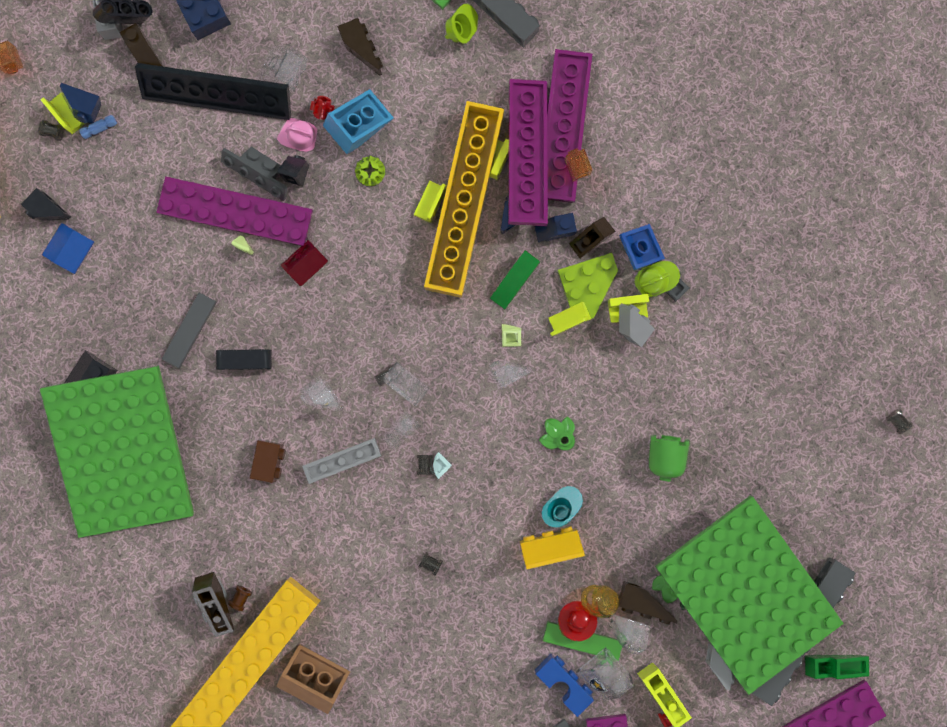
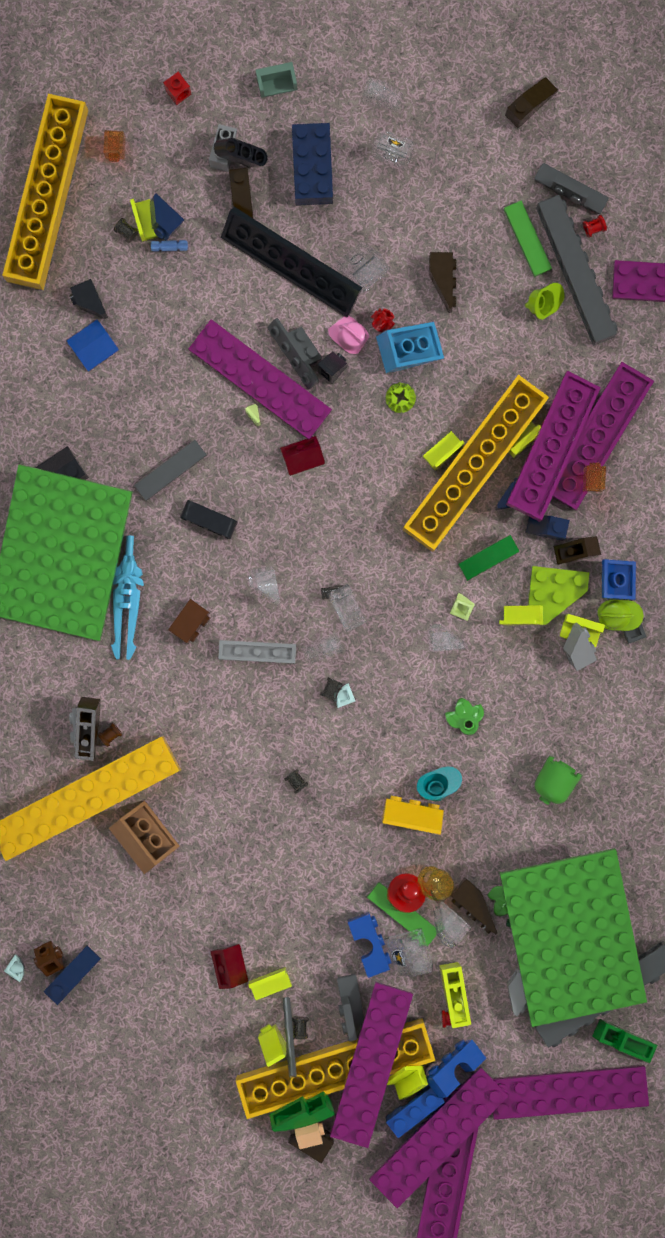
camera: 20 degrees right, 0 degrees up
(193, 445) = (127, 577): none -> medium azure sword

